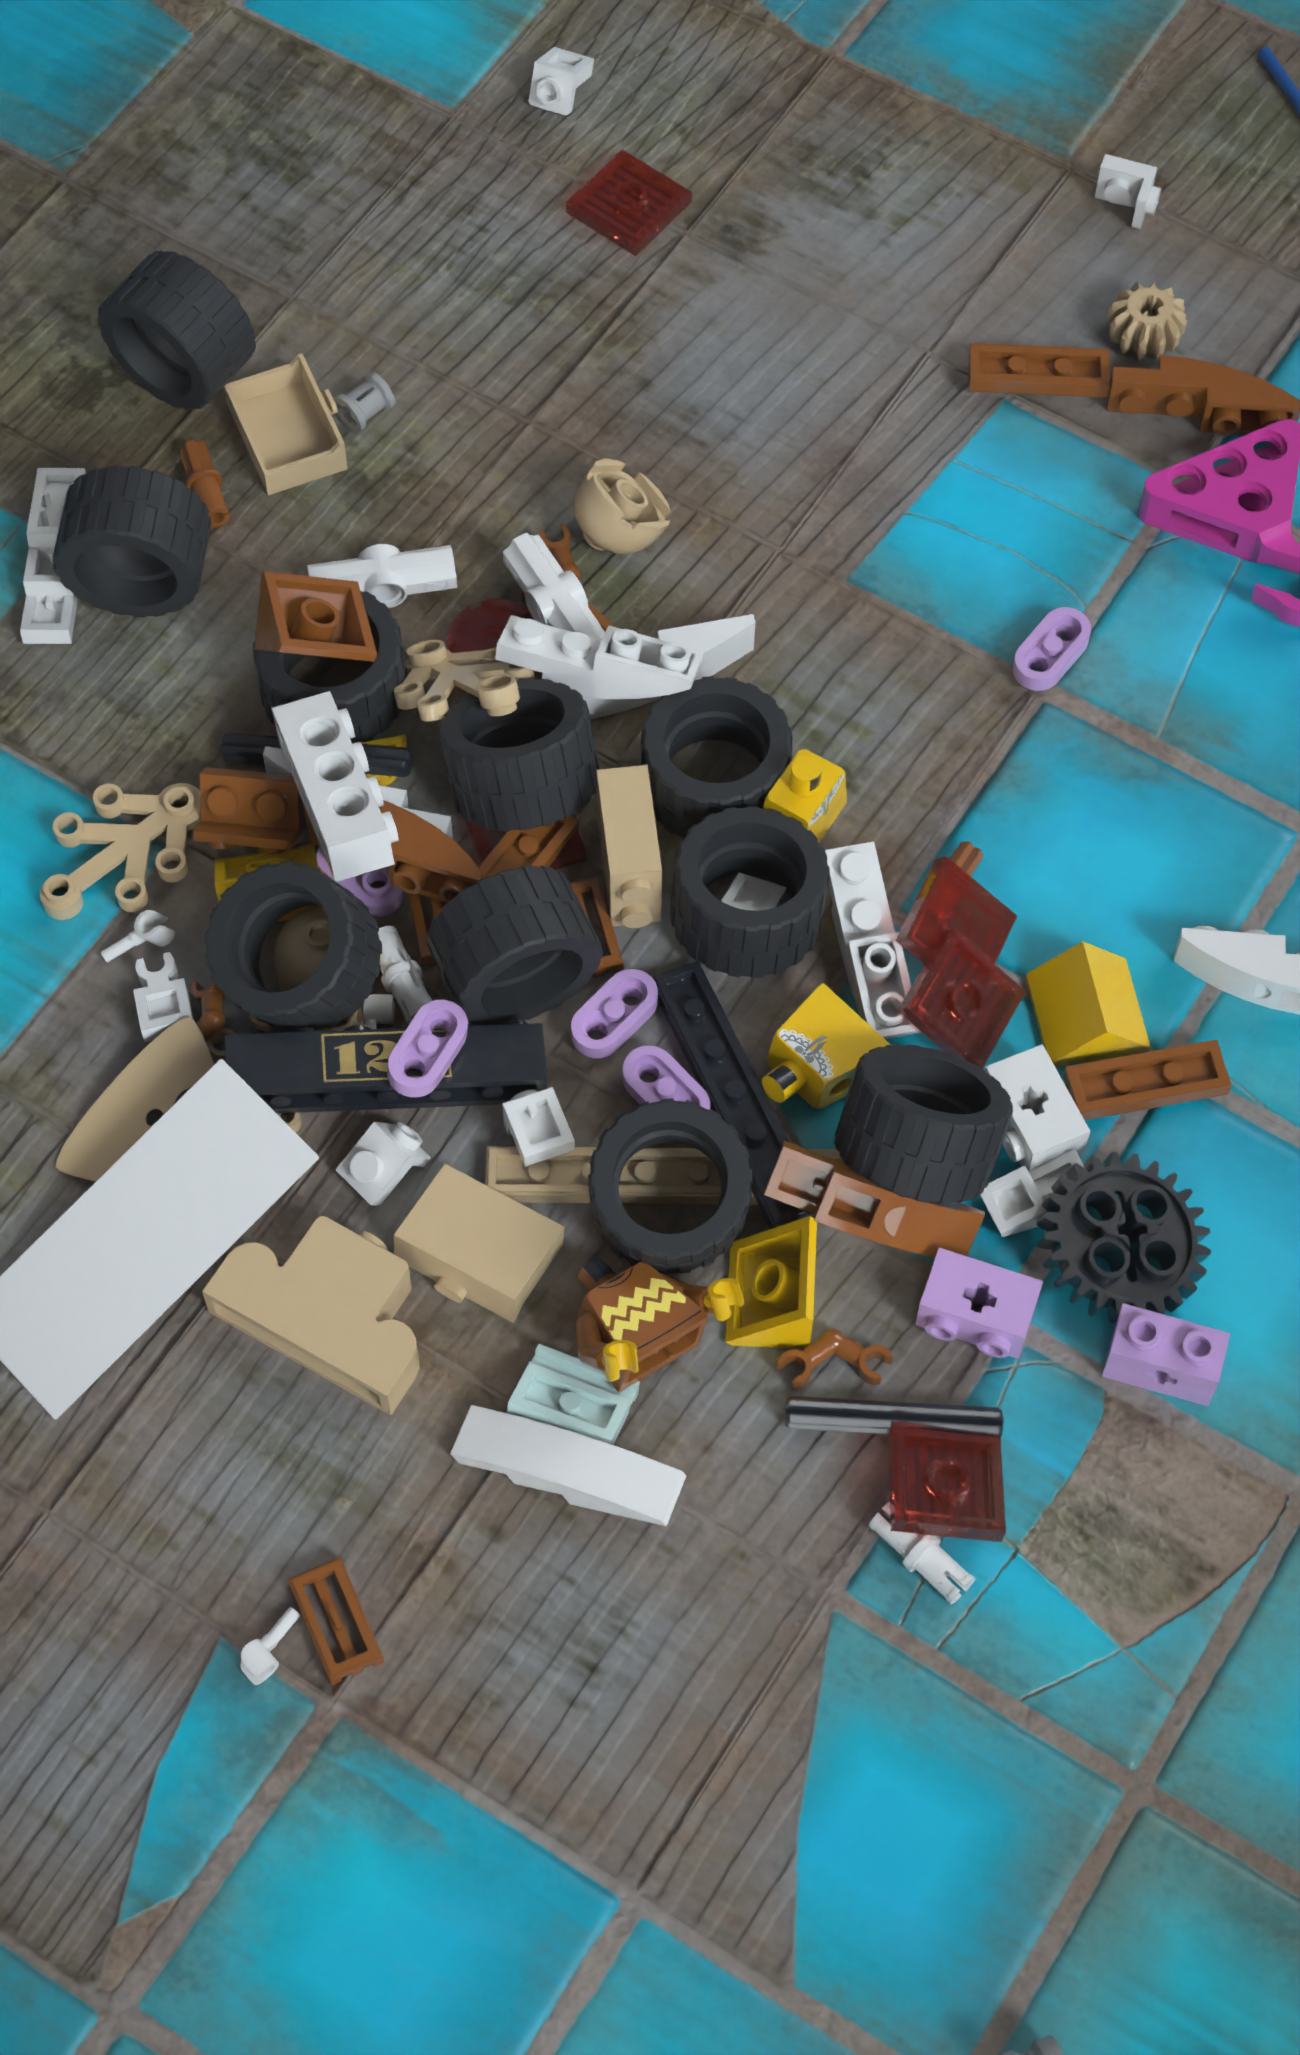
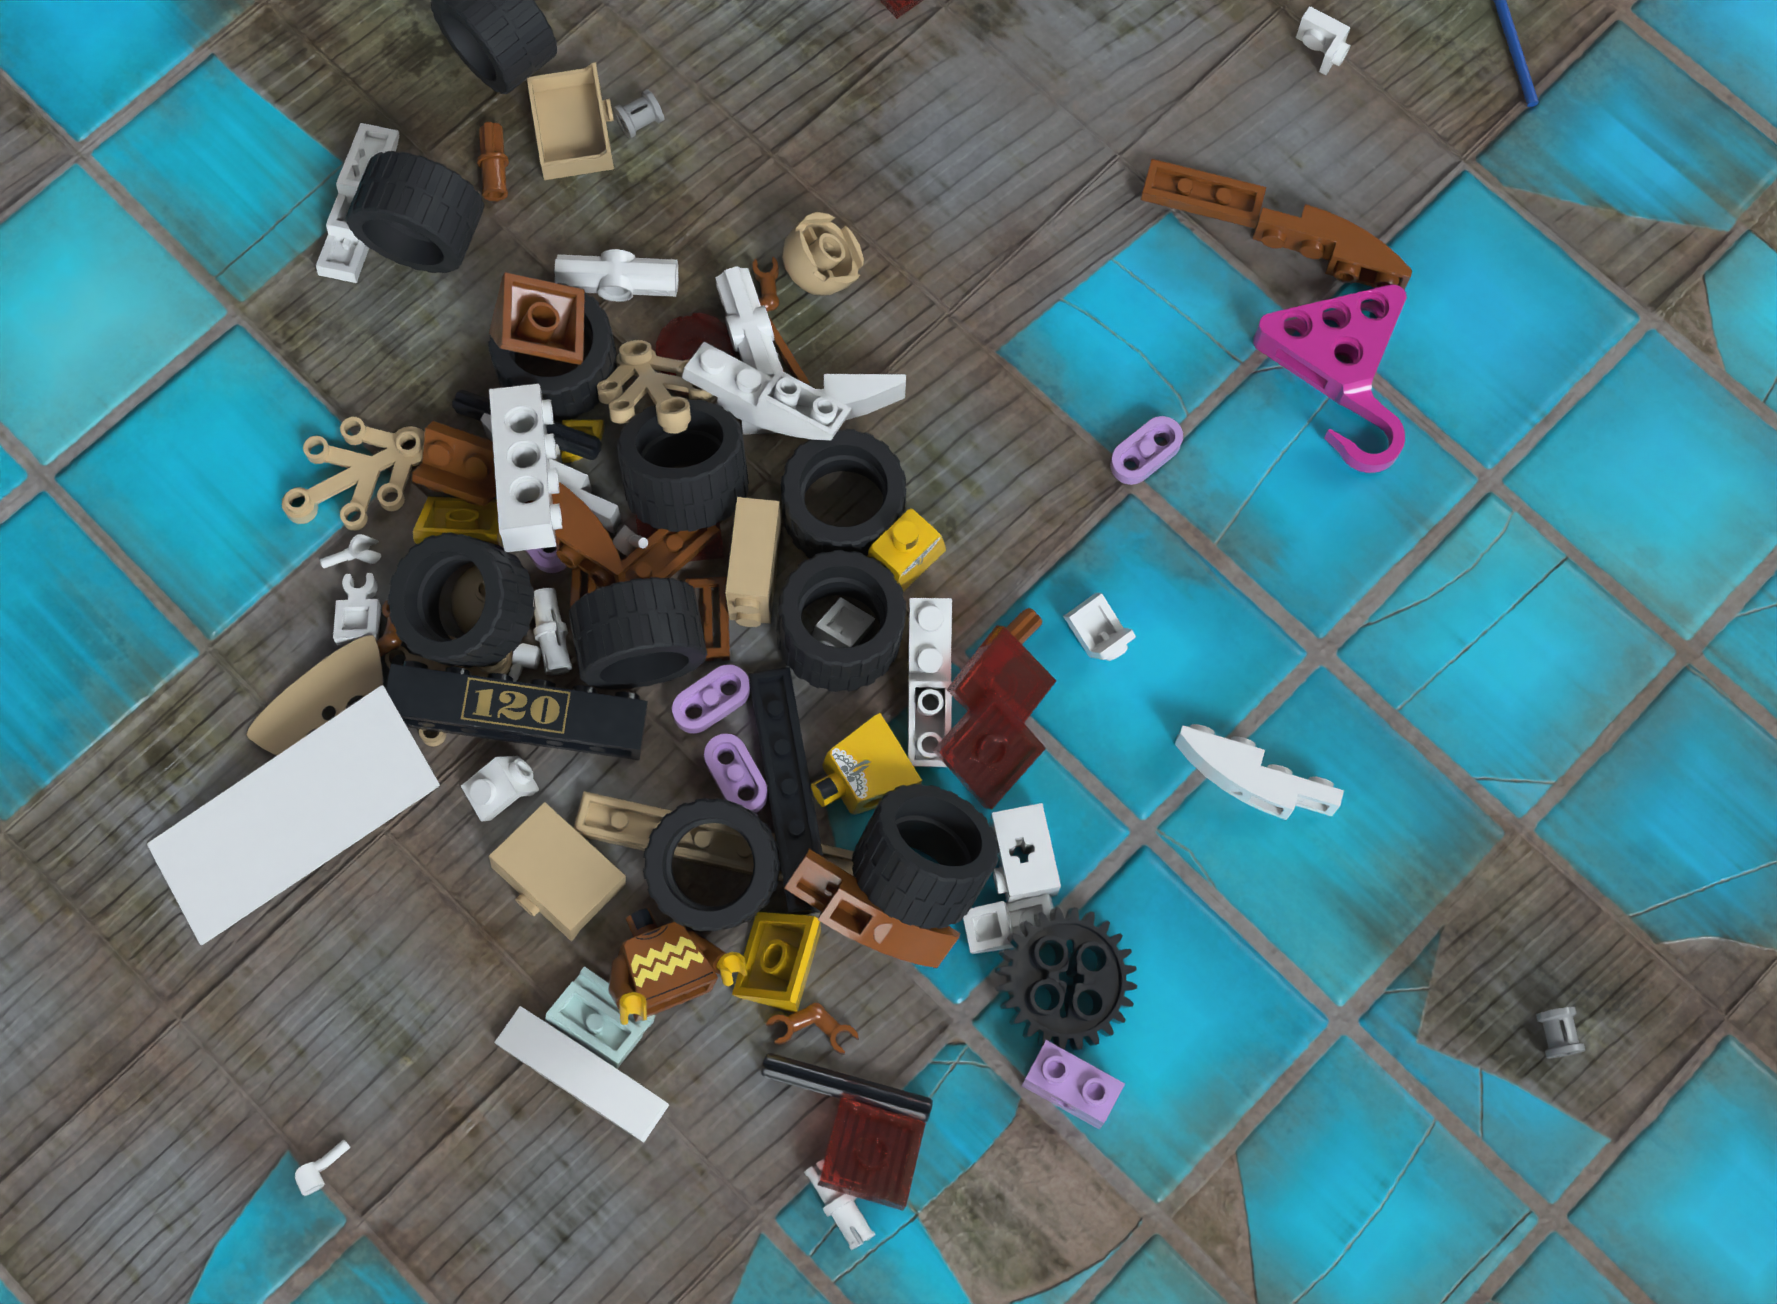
camera: 10 degrees right, 10 degrees up
(325, 1309) = (426, 902): tan brick -> none
(354, 1663) = (382, 1196): dark orange tile -> none
(425, 1051) = (546, 710): lavender plate -> none
(479, 852) = (627, 541): none -> white hand
(537, 1125) = (624, 785): white bracket -> none
(961, 1282) = (925, 987): lavender brick -> none
(1051, 848) = (1099, 628): none -> white bracket
(1086, 1006) = (1092, 772): yellow slope -> none
(1146, 320) = (1291, 164): tan gear -> none
(1148, 1080) = (1122, 846): dark orange plate -> none

